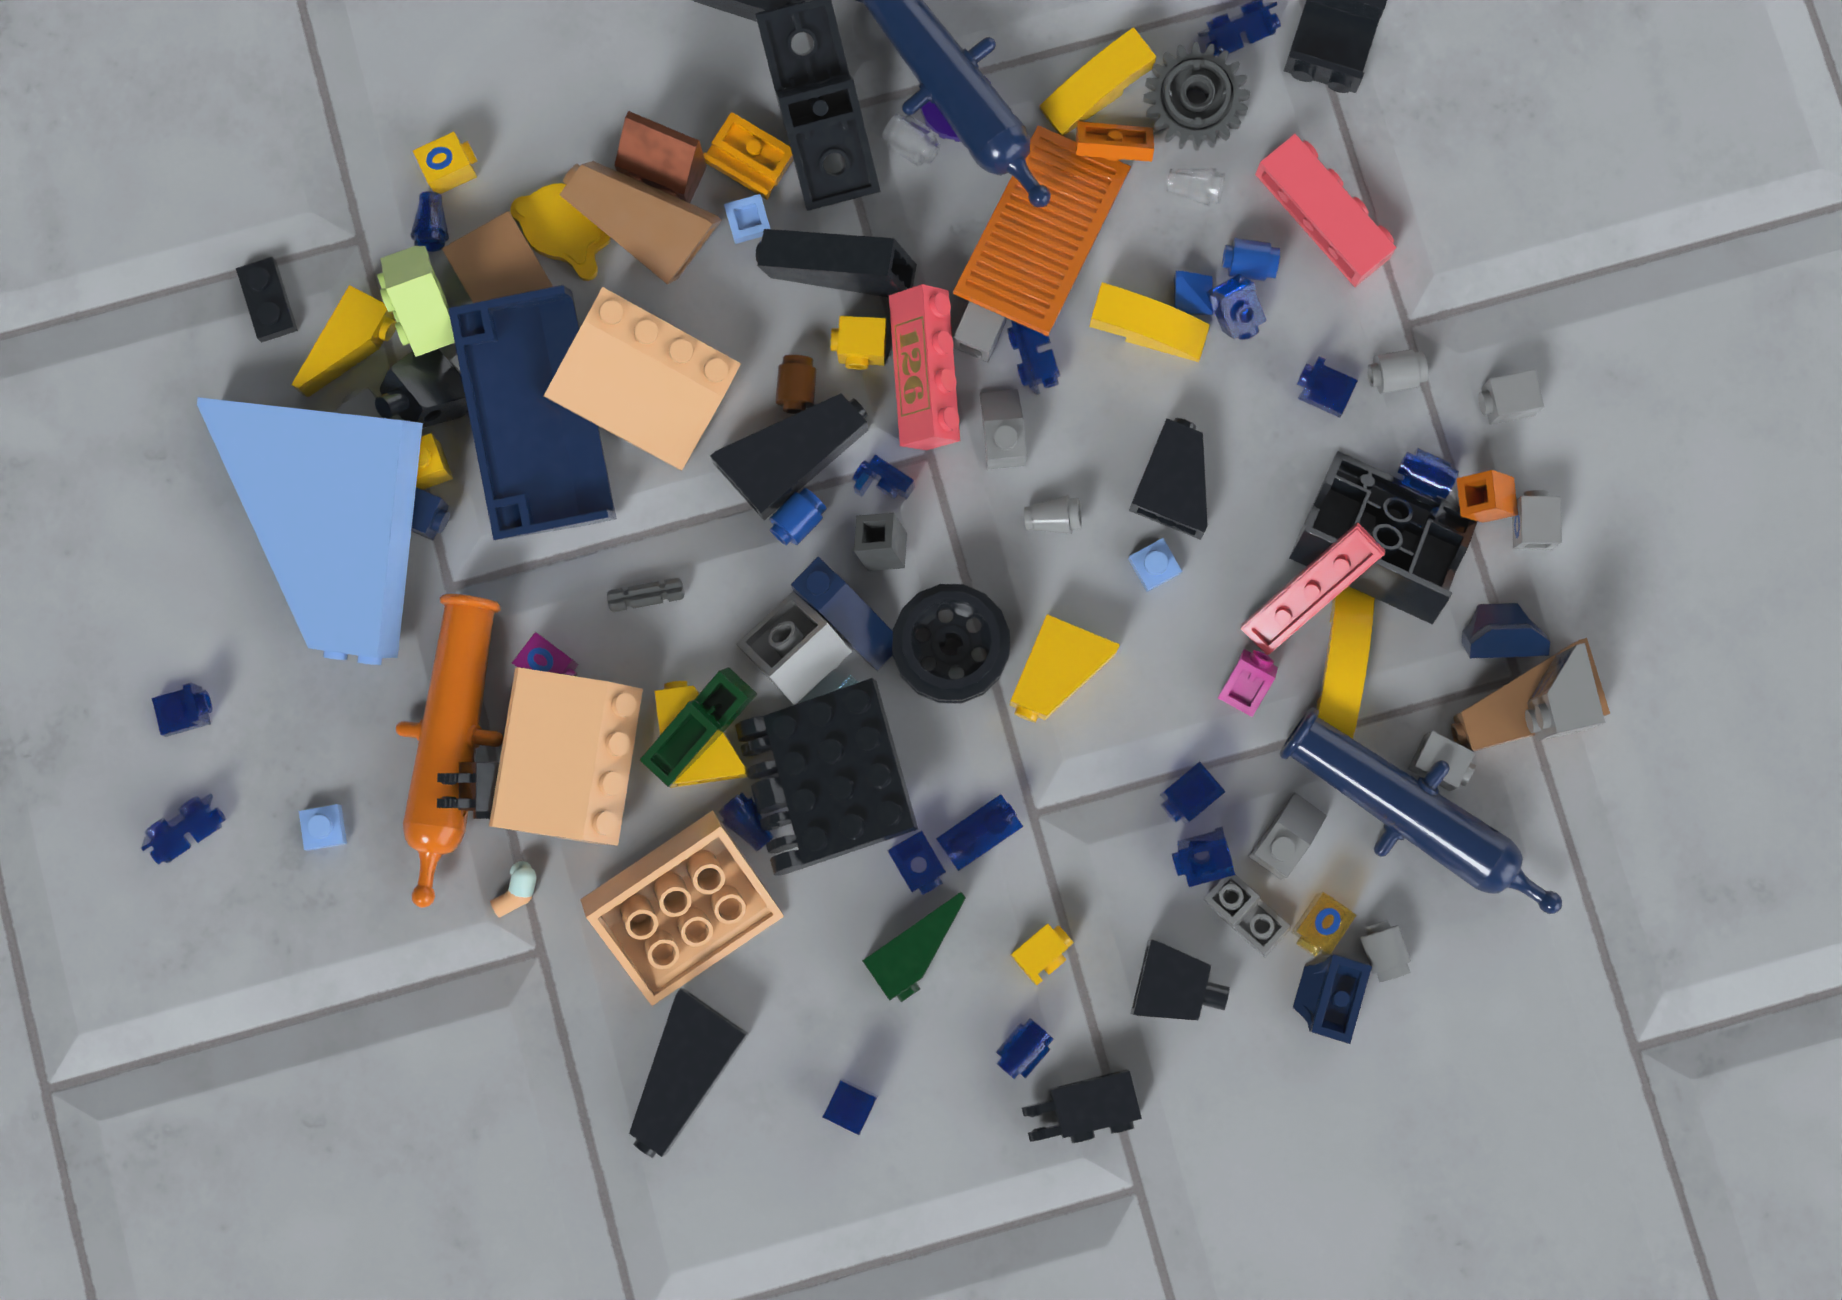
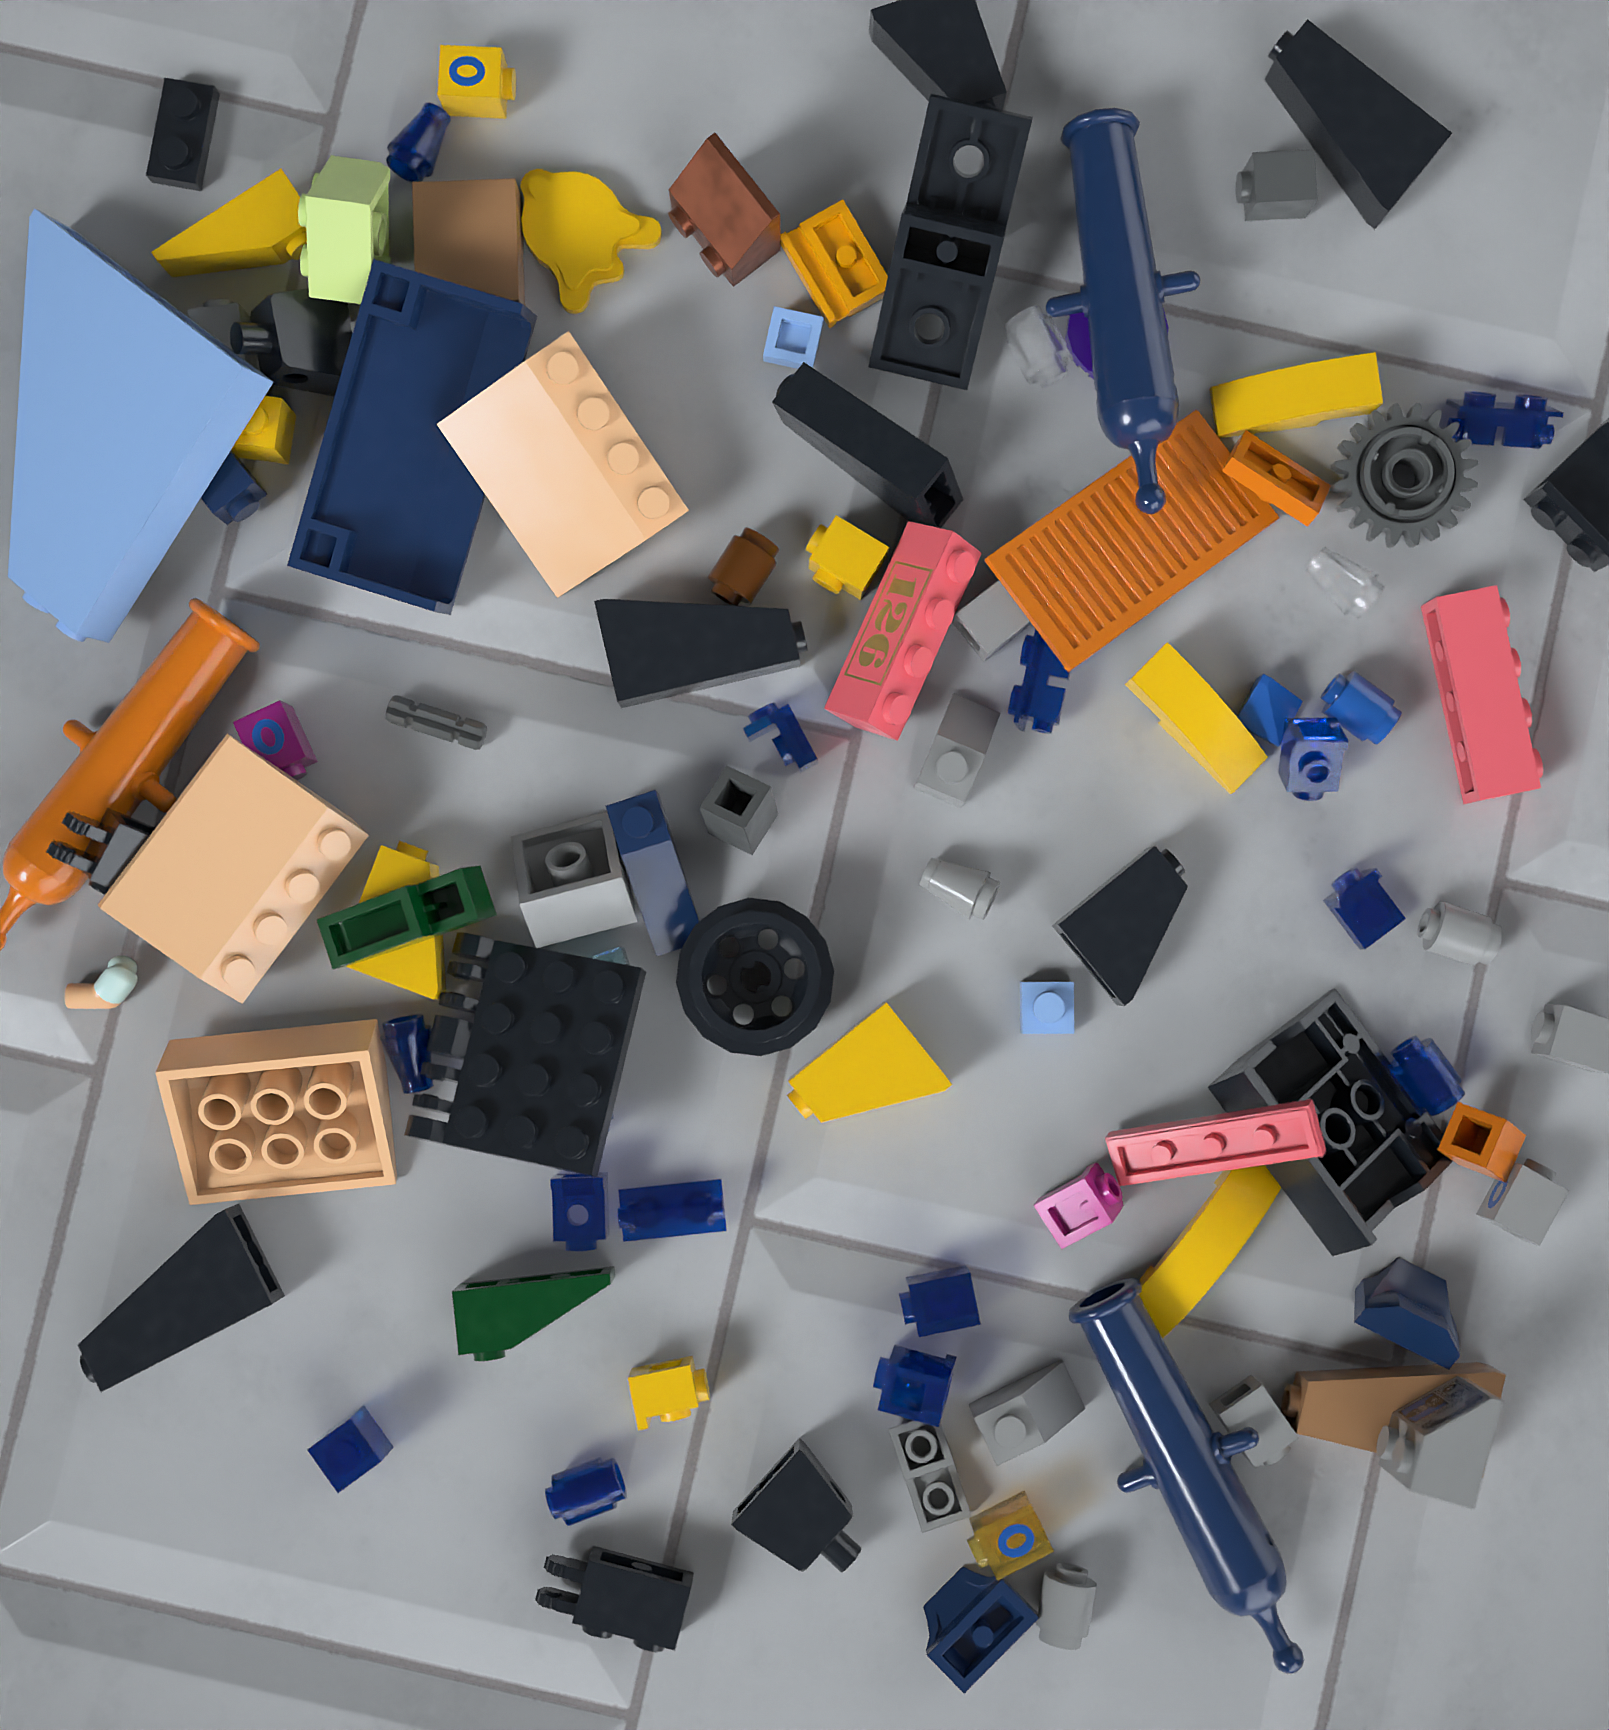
camera: 20 degrees right, 5 degrees up
(640, 218) = (665, 271): medium nougat slope -> none
(797, 517) = (659, 727): blue brick -> none

